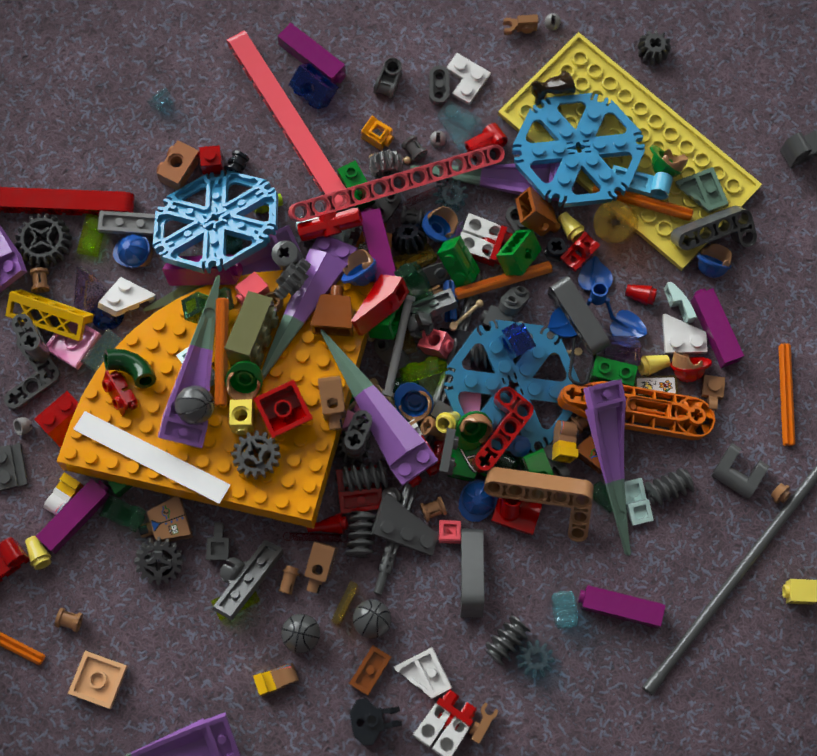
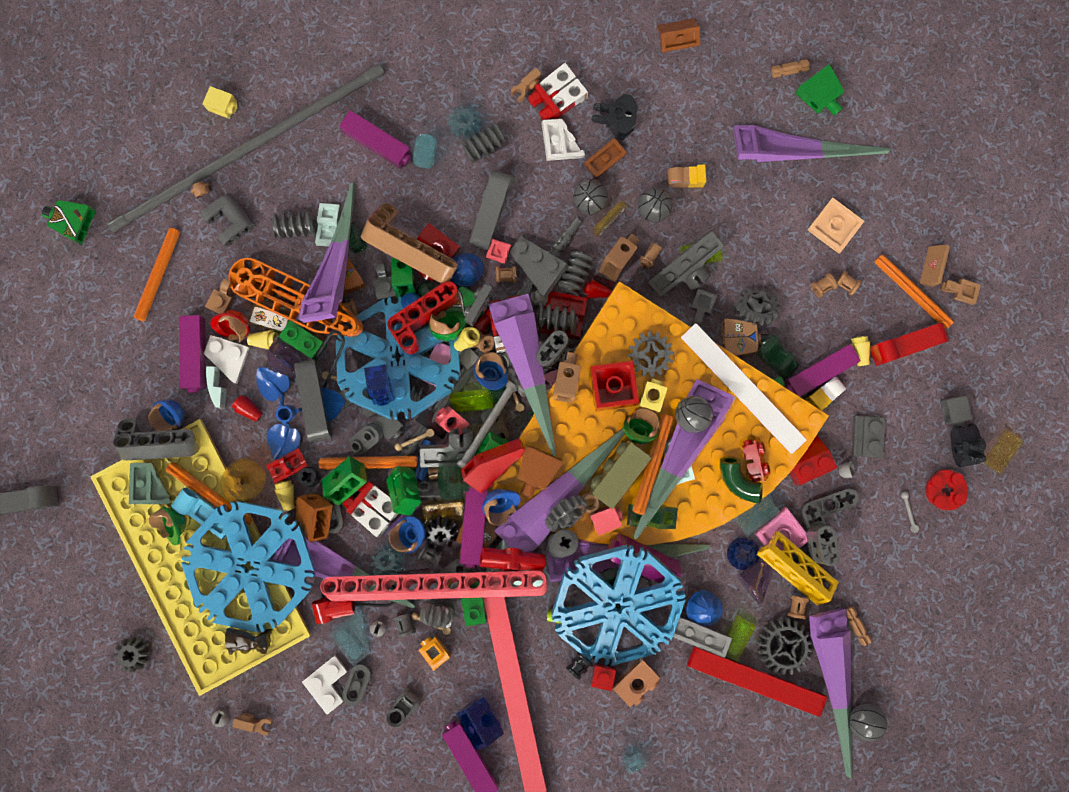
camera: 160 degrees left, 10 degrees up
(94, 608) = (824, 285): none -> medium nougat bush
(124, 297) = (723, 562): white wing -> none
(564, 442) = (369, 292): leg -> none

